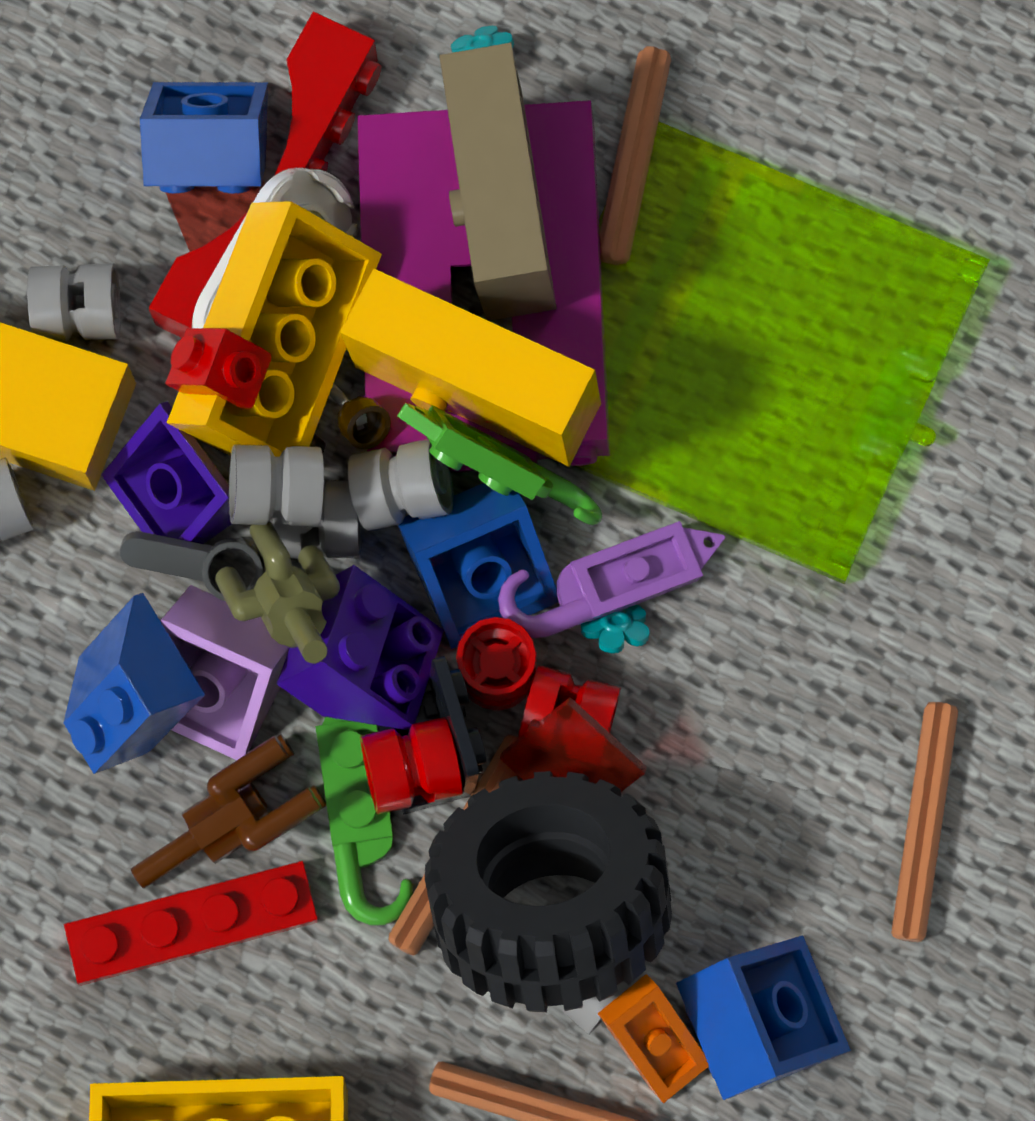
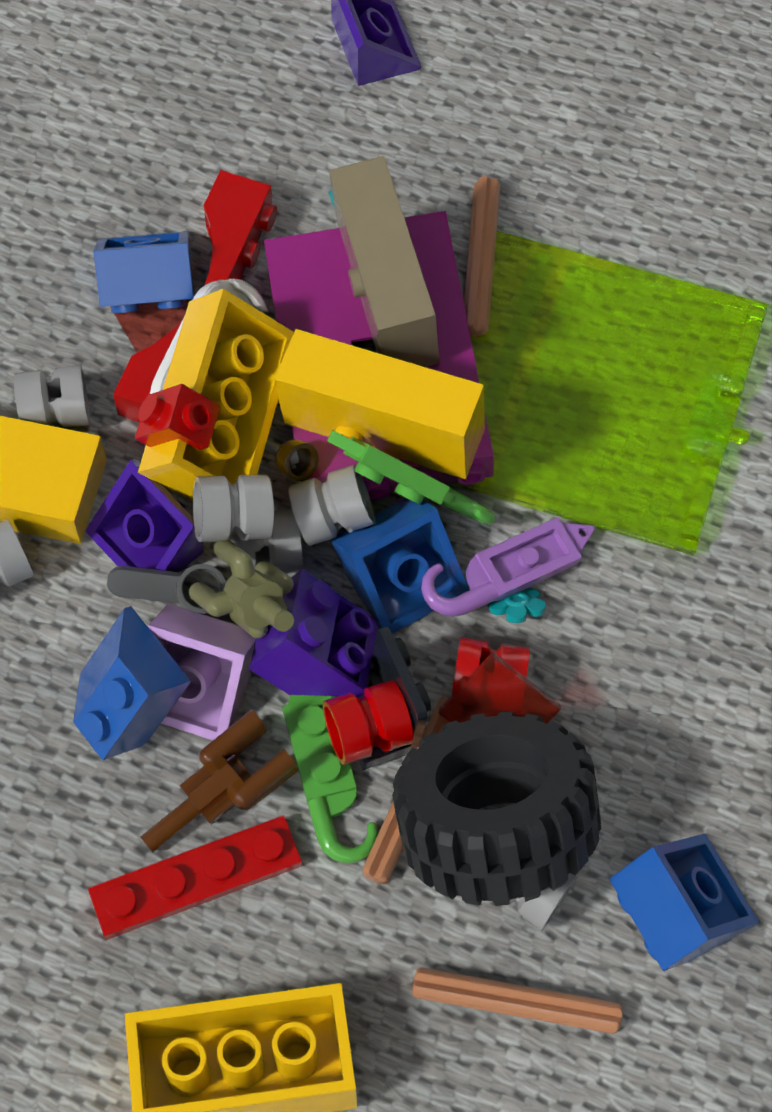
camera: 10 degrees left, 10 degrees down
(497, 663) = (428, 628): red wheel -> none
(654, 1038) = (598, 925): orange plate -> none

